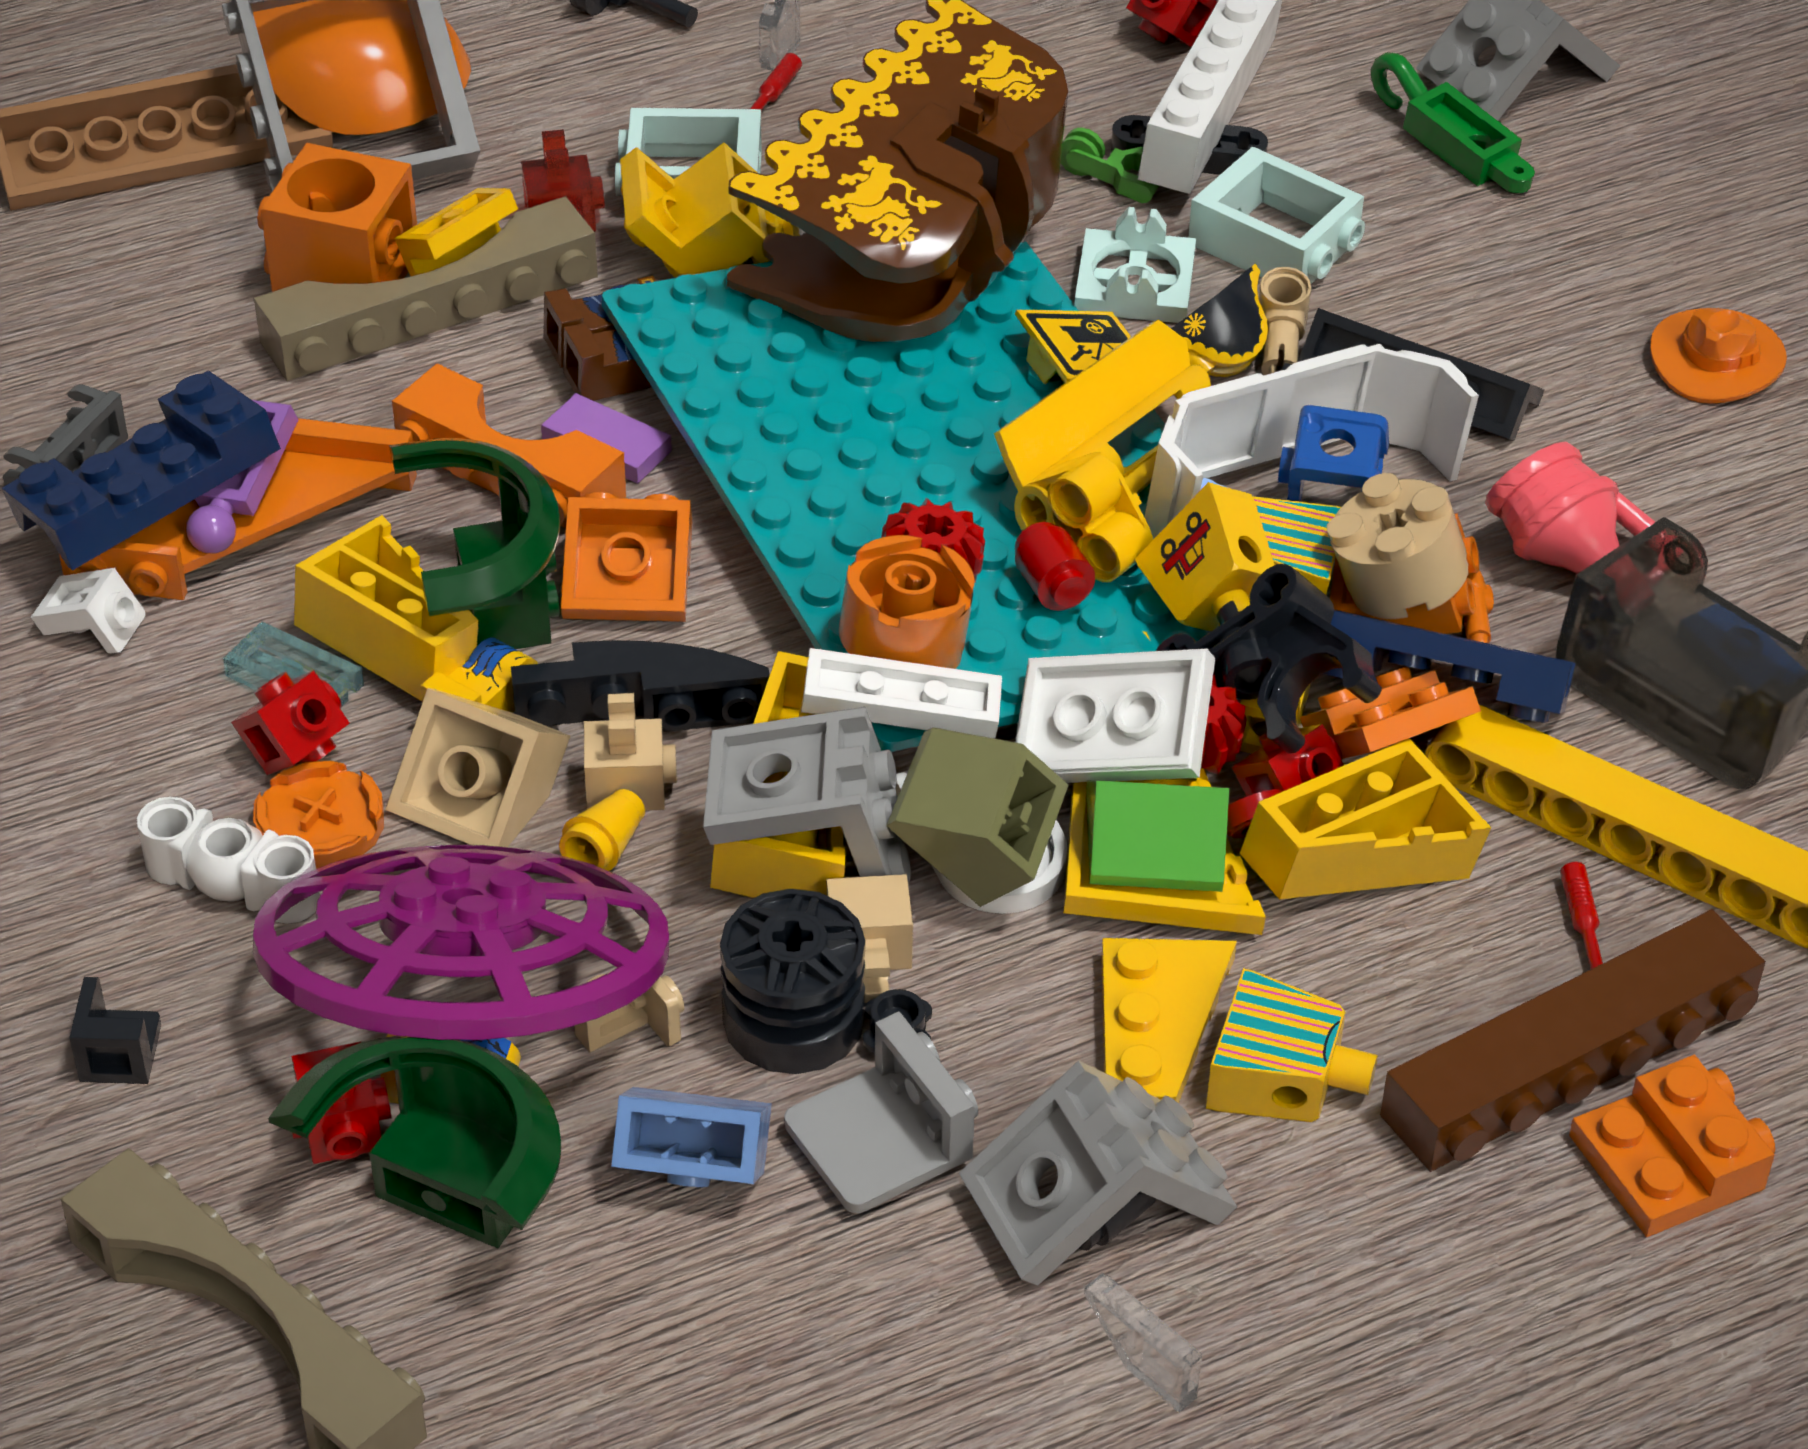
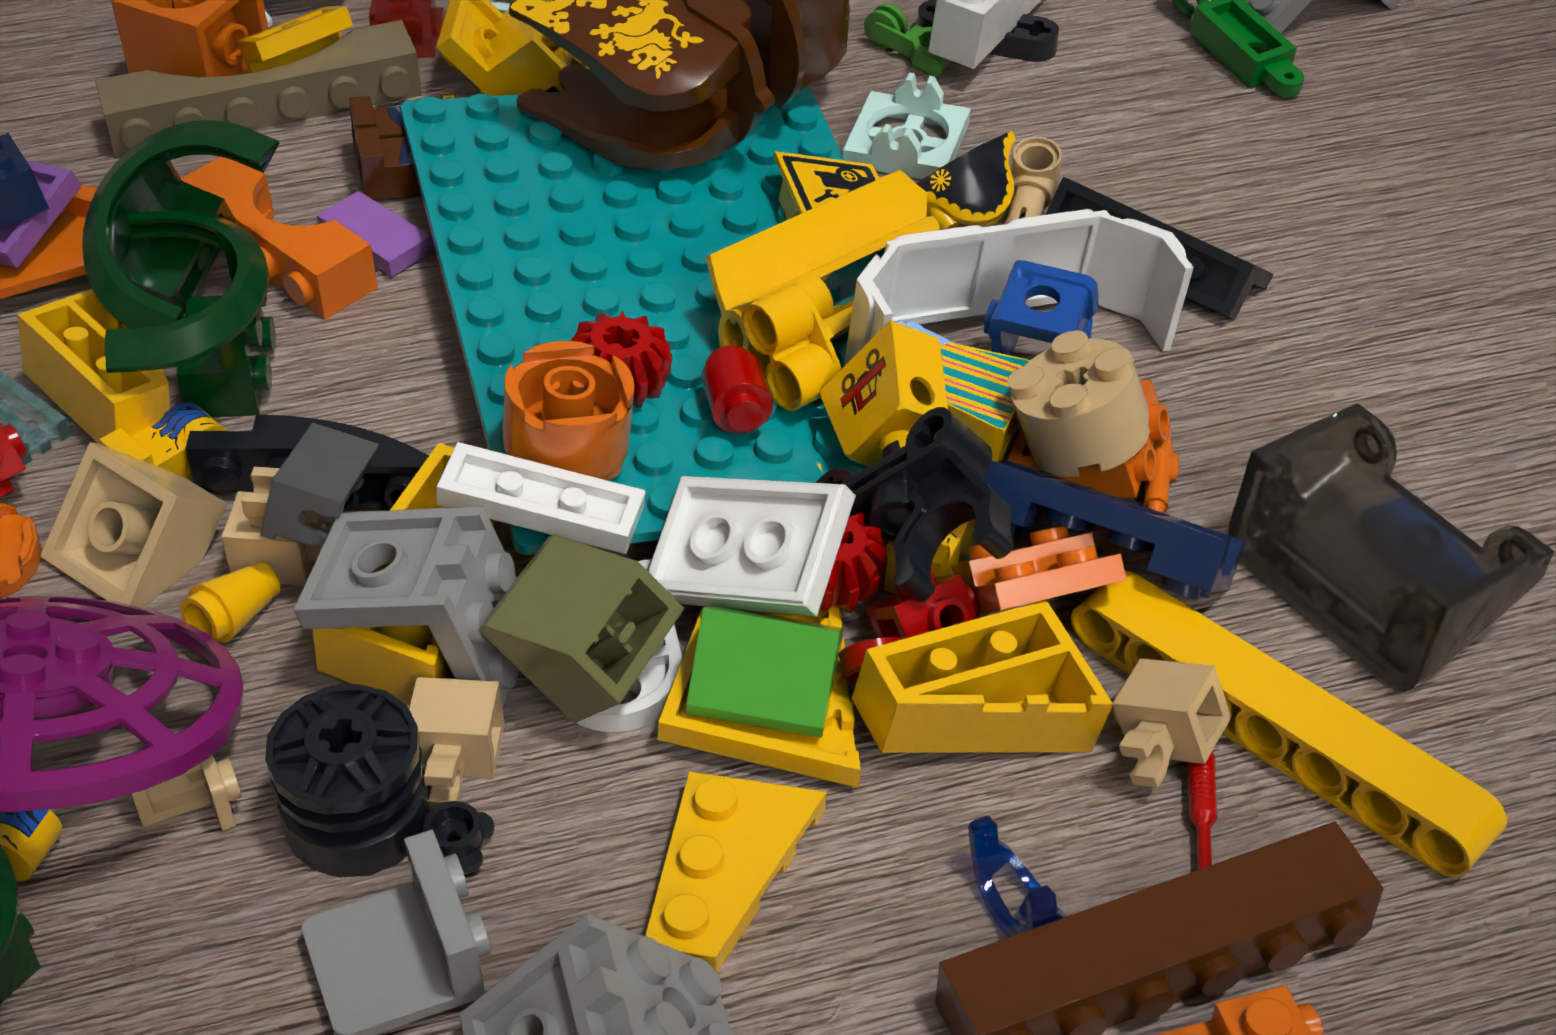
camera: 10 degrees right, 0 degrees up
(411, 507) = (151, 278): none -> dark green piece
(626, 558) = (346, 341): orange plate -> none
(676, 696) = (316, 478): none -> dark grey hinge
(691, 1136) = (188, 936): medium blue brick -> none
(1227, 231) = (1002, 99): light aqua window -> none
(1283, 1053) = (839, 923): yellow torso -> none
(1402, 980) = (988, 857): none -> clear blue helmet
(1540, 834) = (1169, 715): none -> tan brick
(1562, 509) = (1259, 384): coral piece -> none
(1716, 354) = (1450, 258): orange hat -> none

